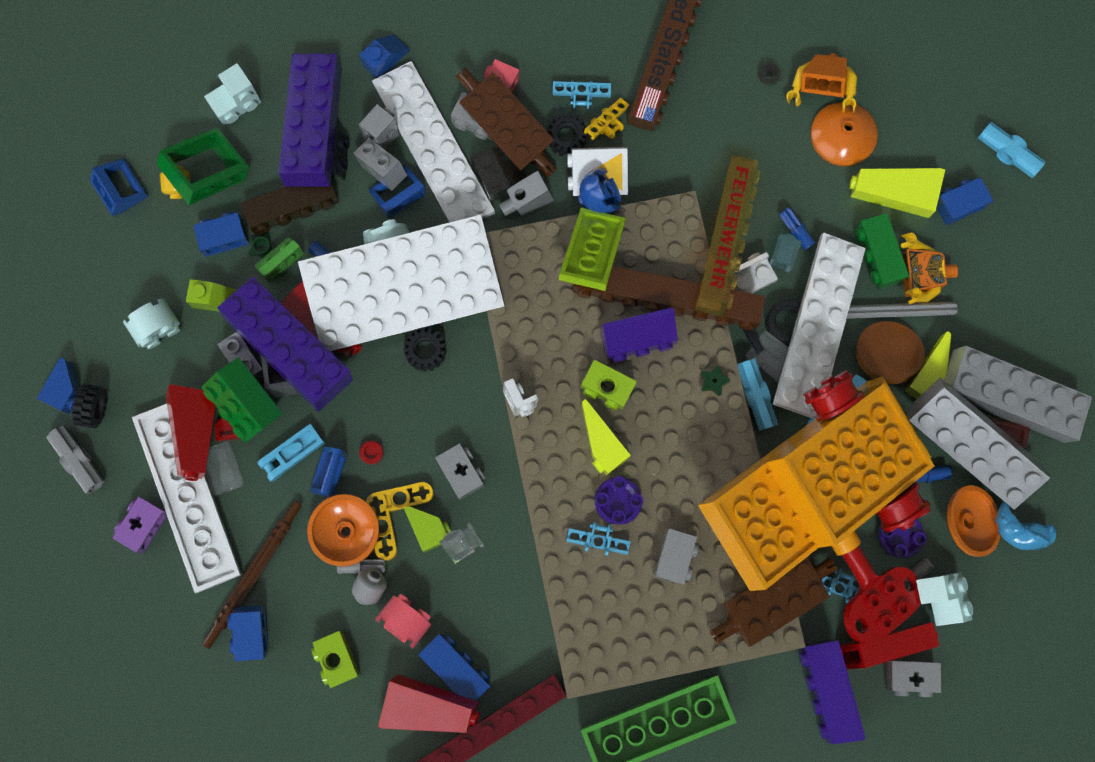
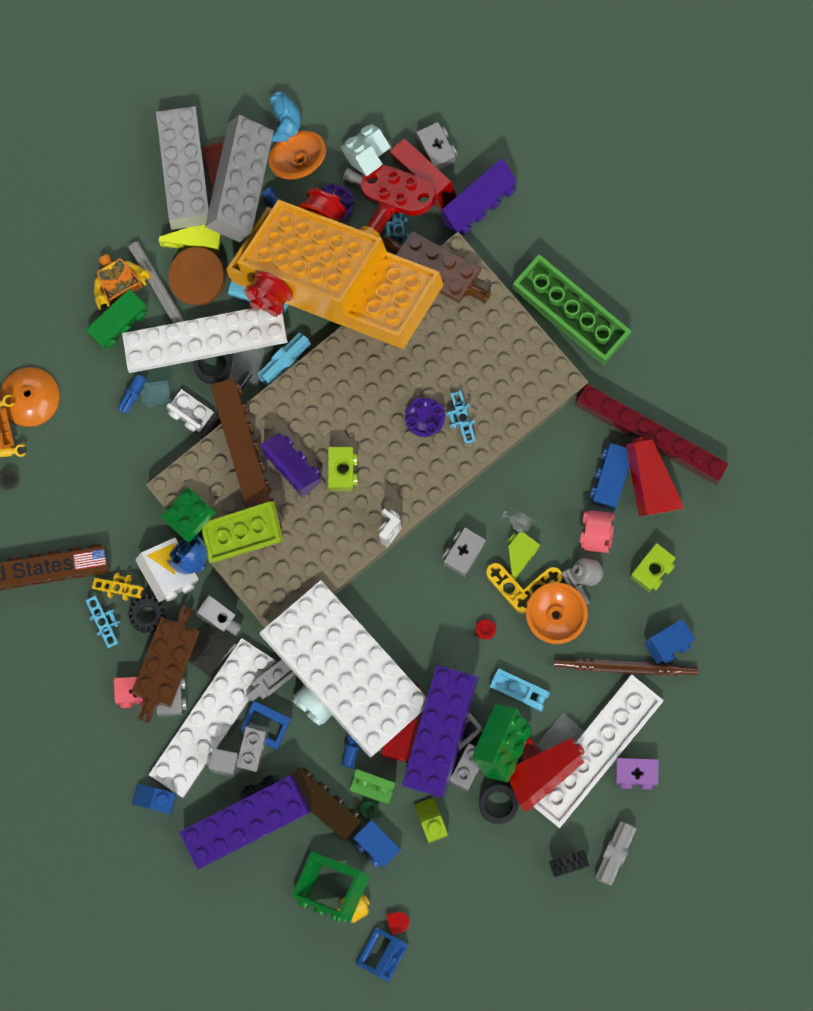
camera: 115 degrees left, 0 degrees up
(60, 387) = (568, 896): blue slope -> none
(138, 217) = (397, 922): none -> red tile
(152, 323) = (479, 853): light aqua brick -> none
(182, 355) = (483, 804): none -> black tyre
(232, 97) = (259, 901): light aqua brick -> none
(328, 472) = (519, 652): blue tile -> none
(425, 335) = (385, 618): black tyre -> none
(434, 207) = (270, 680): none -> light grey hinge
(604, 445) = (389, 449): neon yellow slope -> none
(641, 211) = (188, 514): none -> green plate
(676, 557) = (444, 354): light grey brick -> none
(720, 380) = (300, 395): dark green plate -> none
(727, 236) = (172, 438): clear yellow brick -> none
(901, 189) = (56, 328): neon yellow slope -> none
(963, 201) = (41, 277): blue brick -> none

